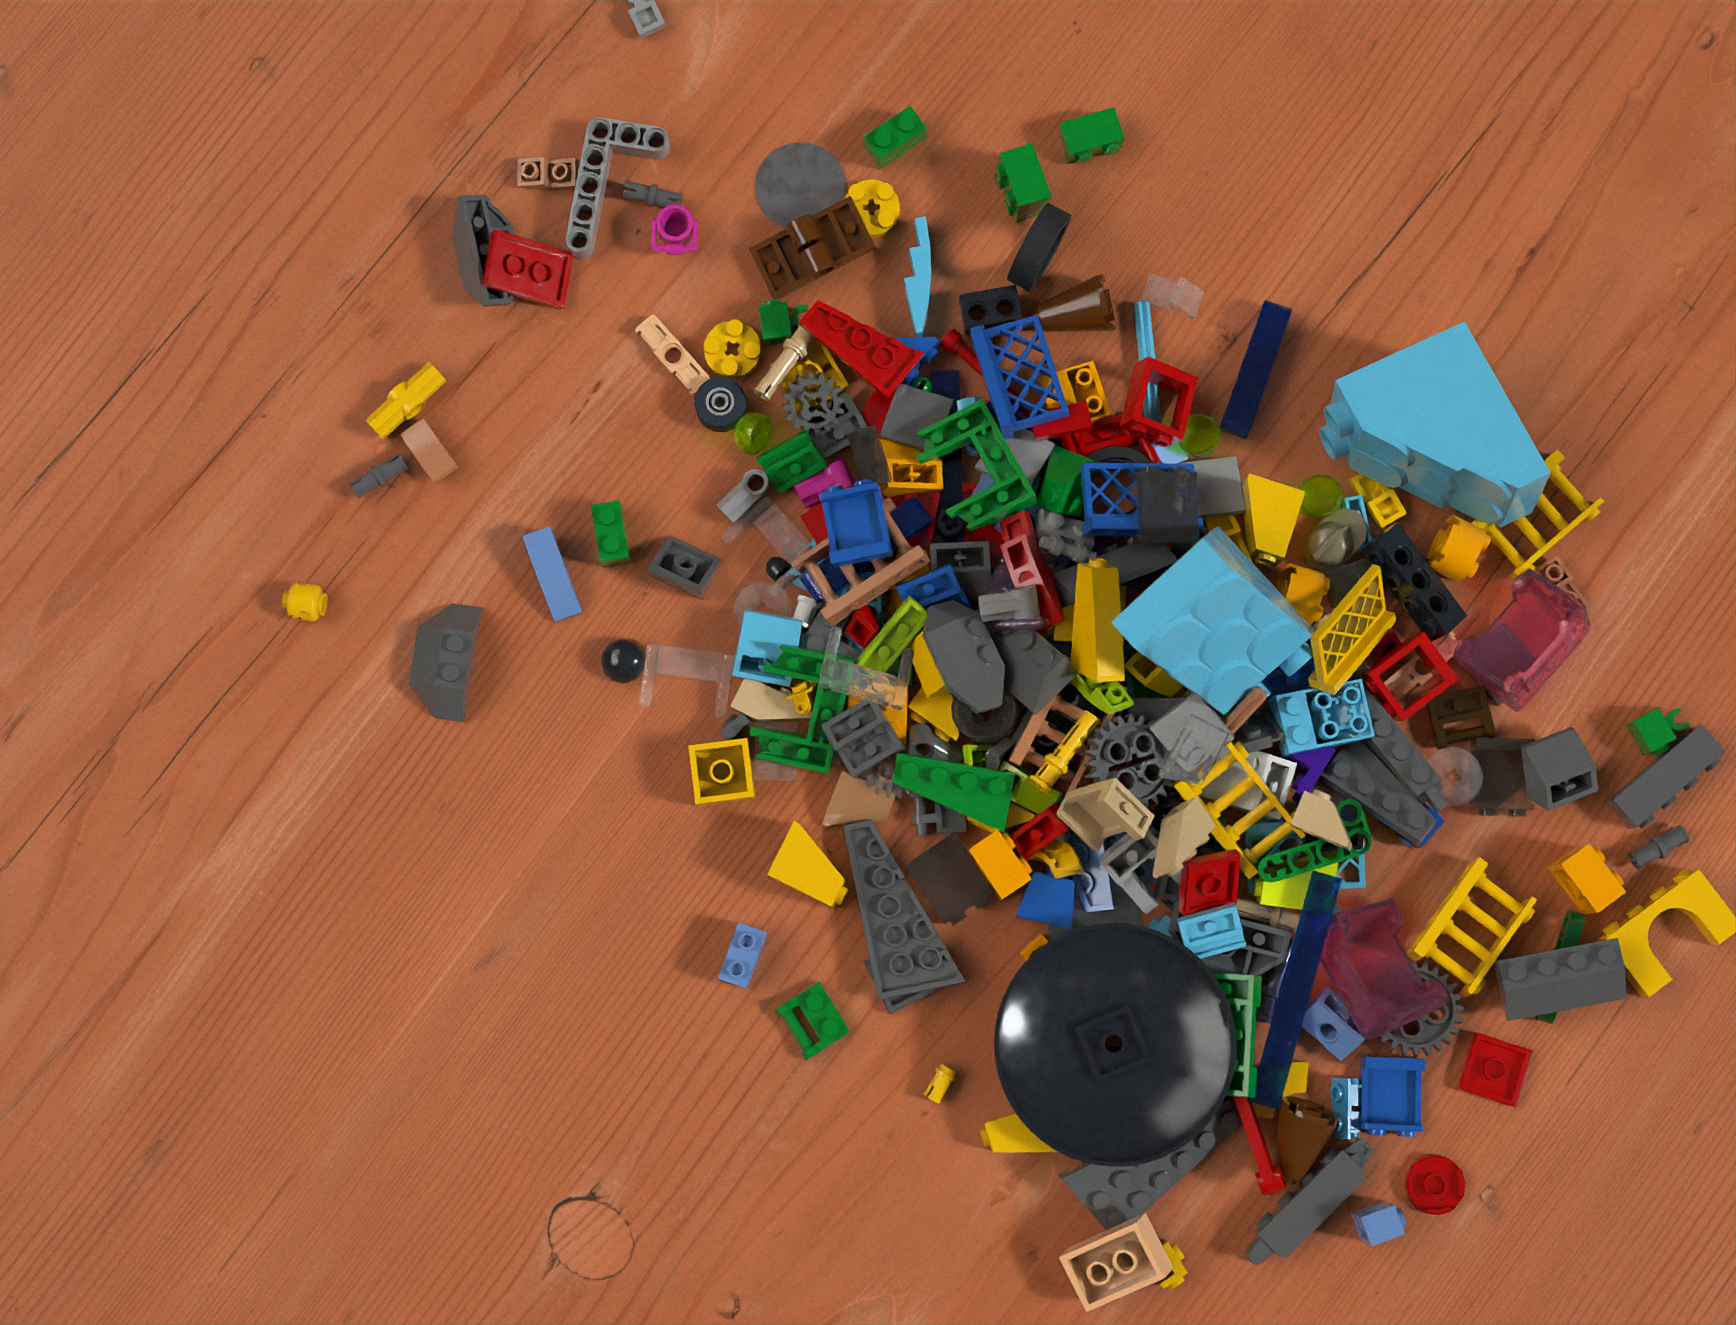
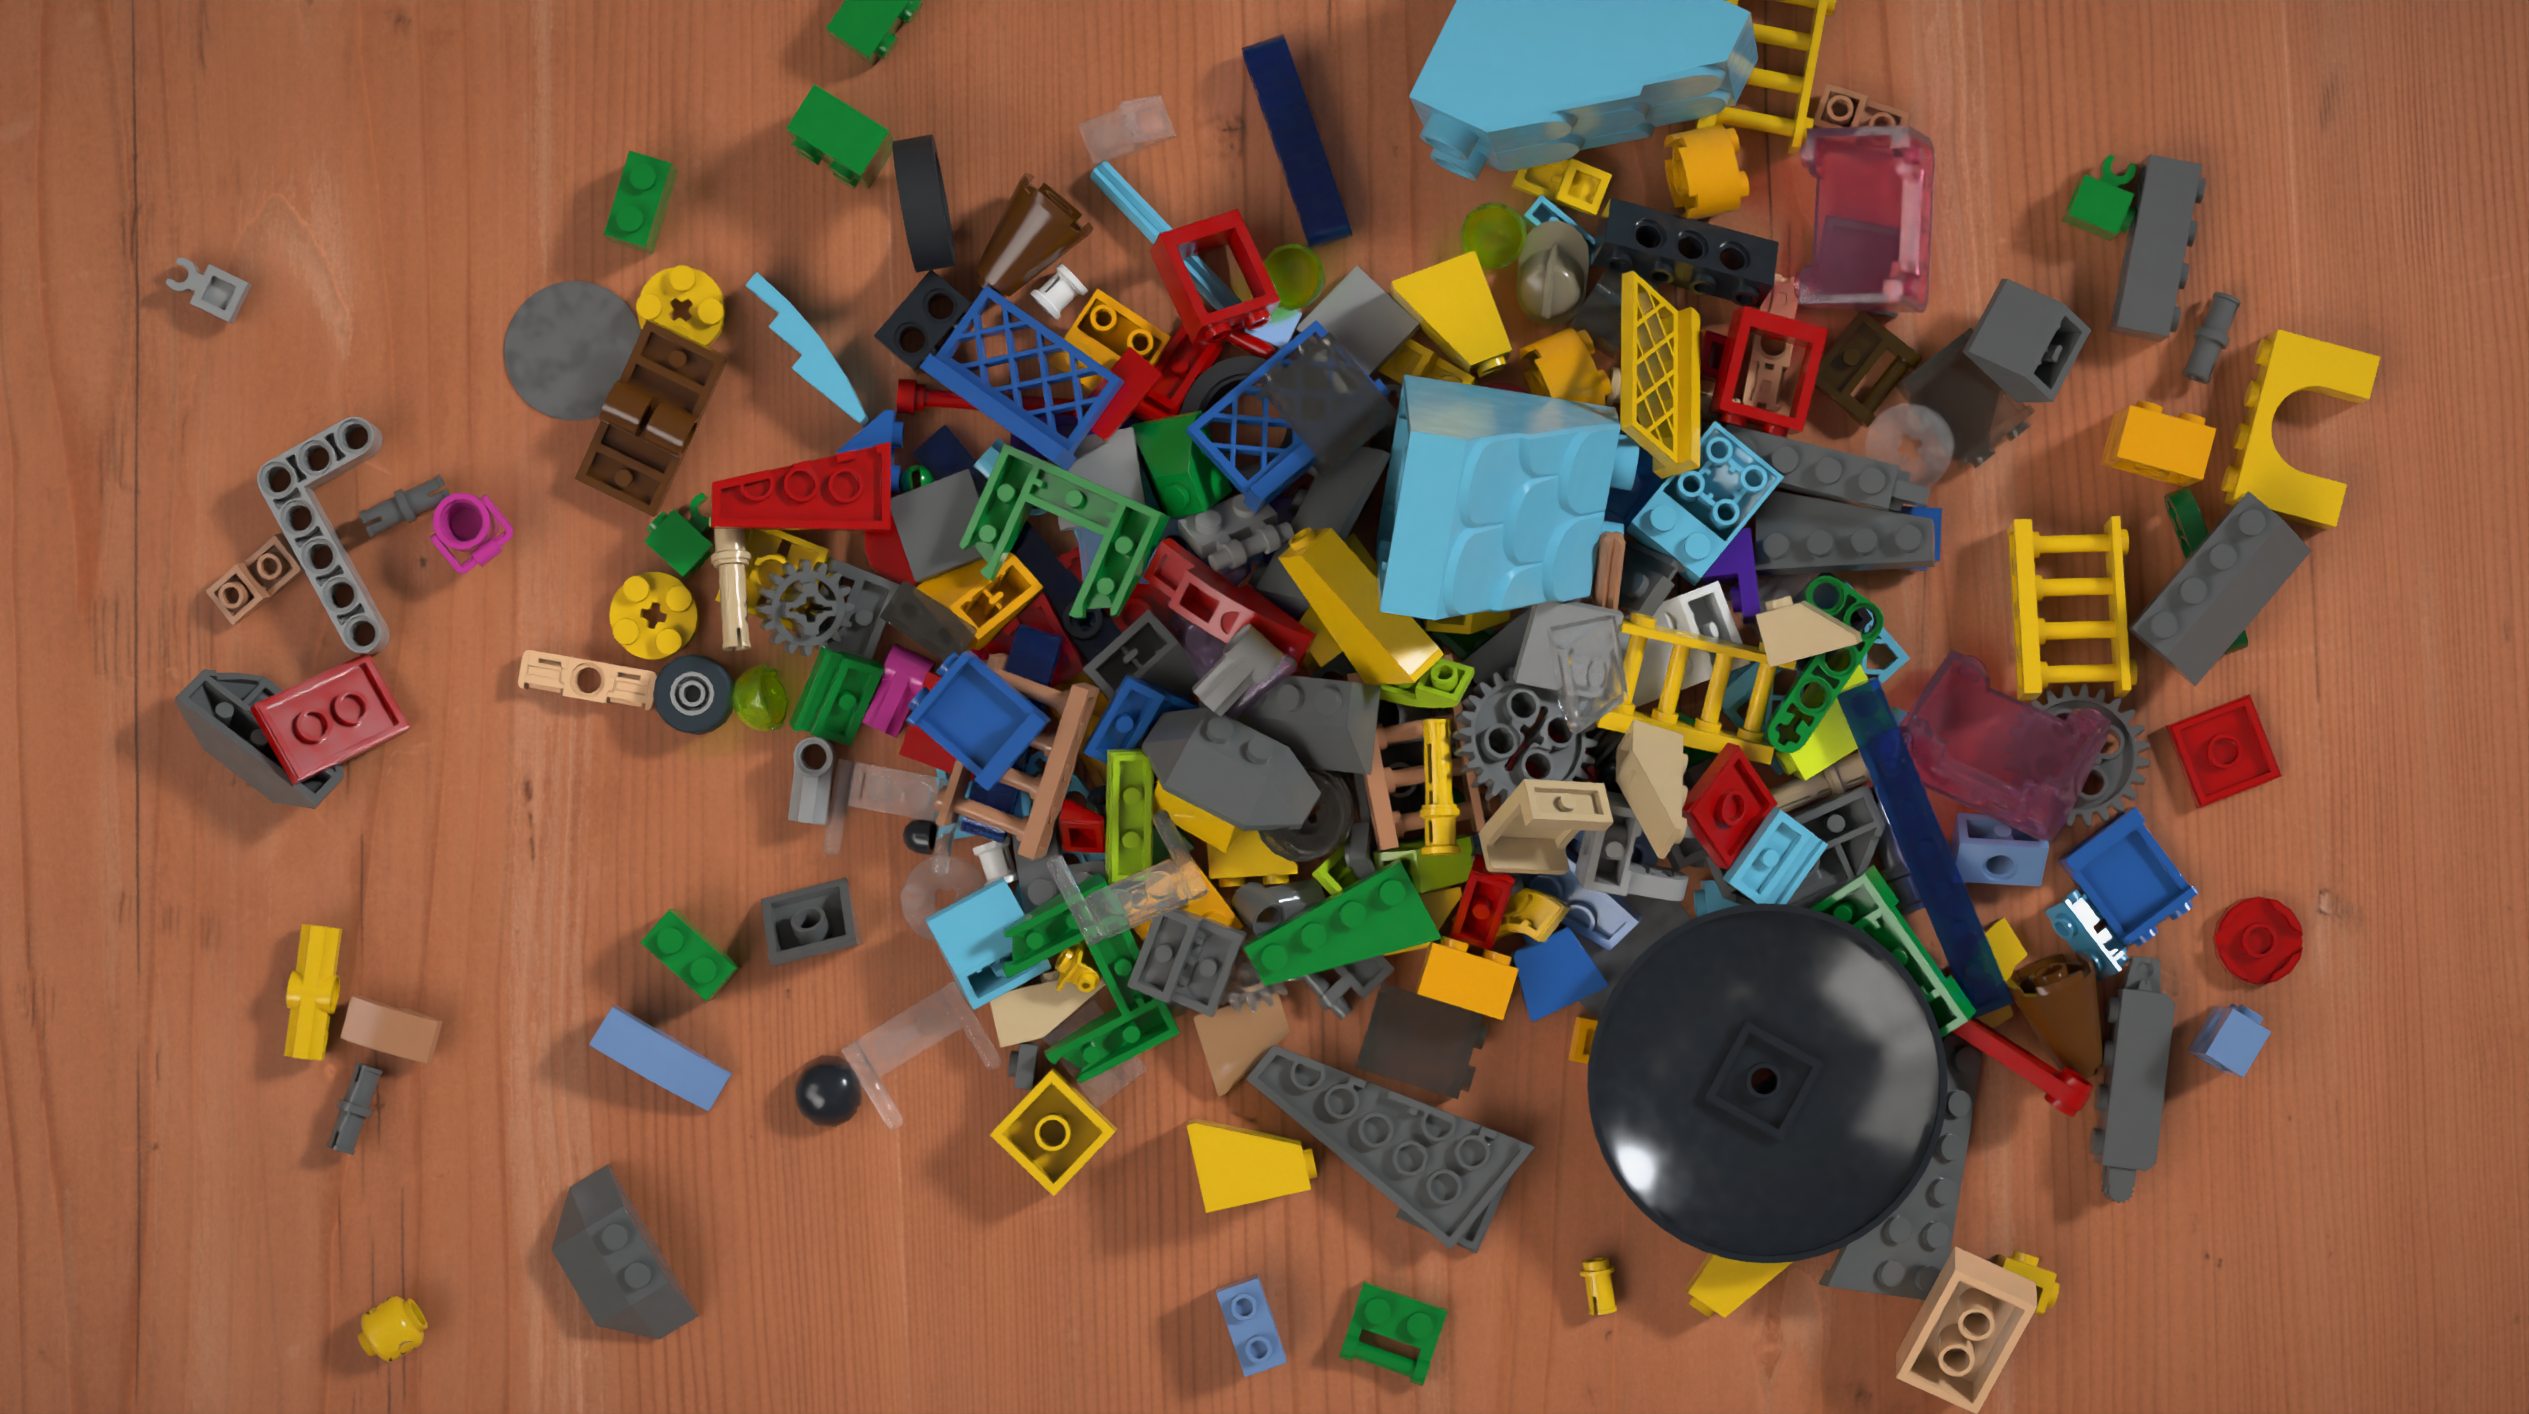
camera: 40 degrees left, 5 degrees up
(1071, 349) = (1058, 292): none -> white bush

